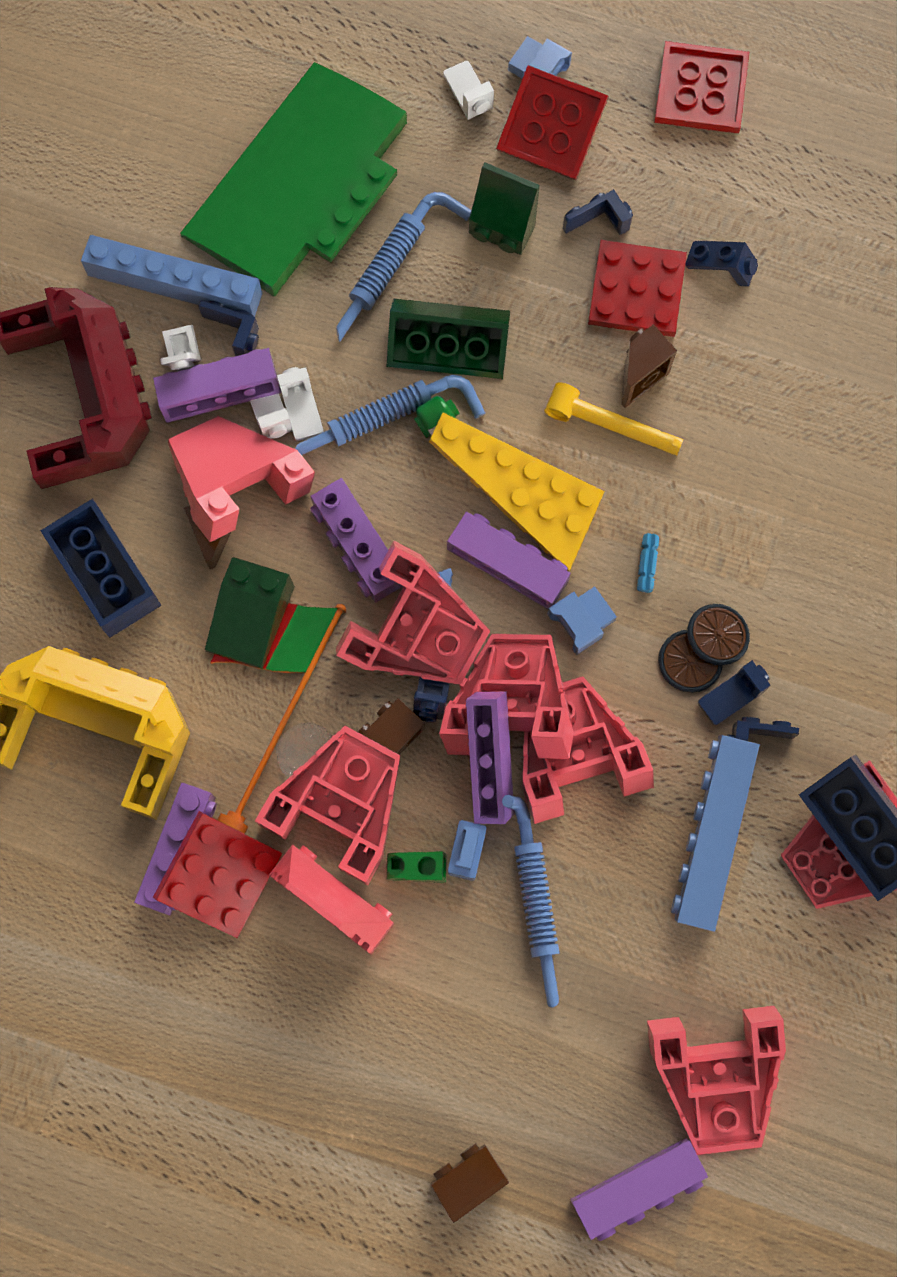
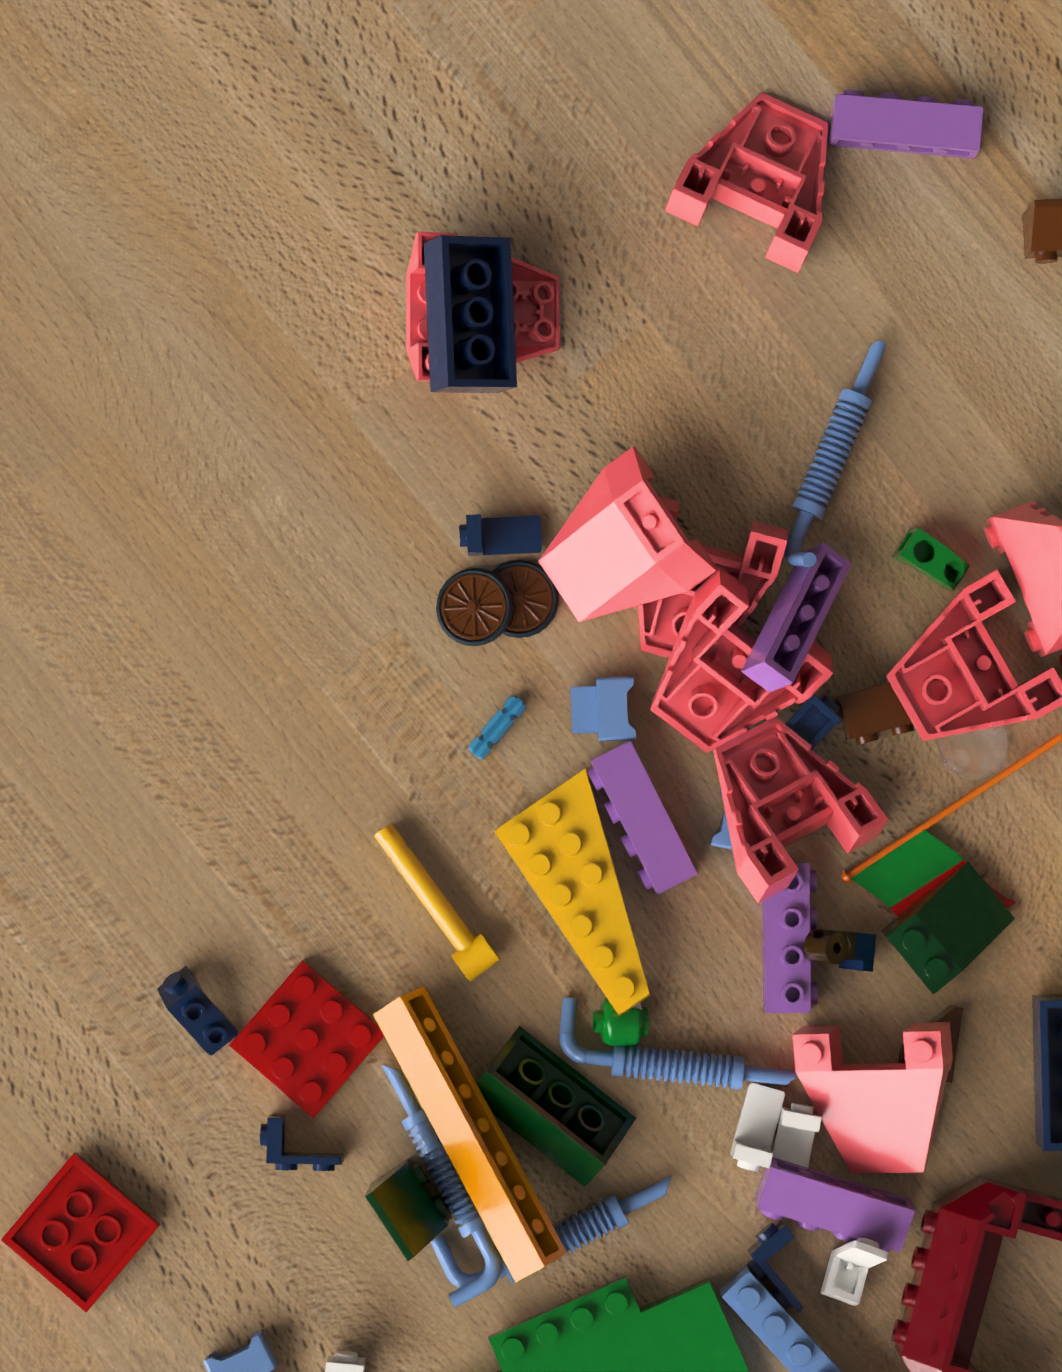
camera: 150 degrees left, 10 degrees up
(317, 554) = (844, 948): none -> dark brown leg
(467, 850) = (873, 544): medium blue piece -> none
(484, 251) = (451, 1186): none -> medium blue piece
(492, 281) = (470, 1133): none -> light orange brick
(552, 122) = (280, 1287): red plate -> none
(646, 363) = (364, 941): reddish brown slope -> none
(648, 729) = (622, 546): none -> coral wedge
(716, 832) = (614, 407): medium blue brick -> none
(752, 725) = (529, 485): dark blue bracket -> none

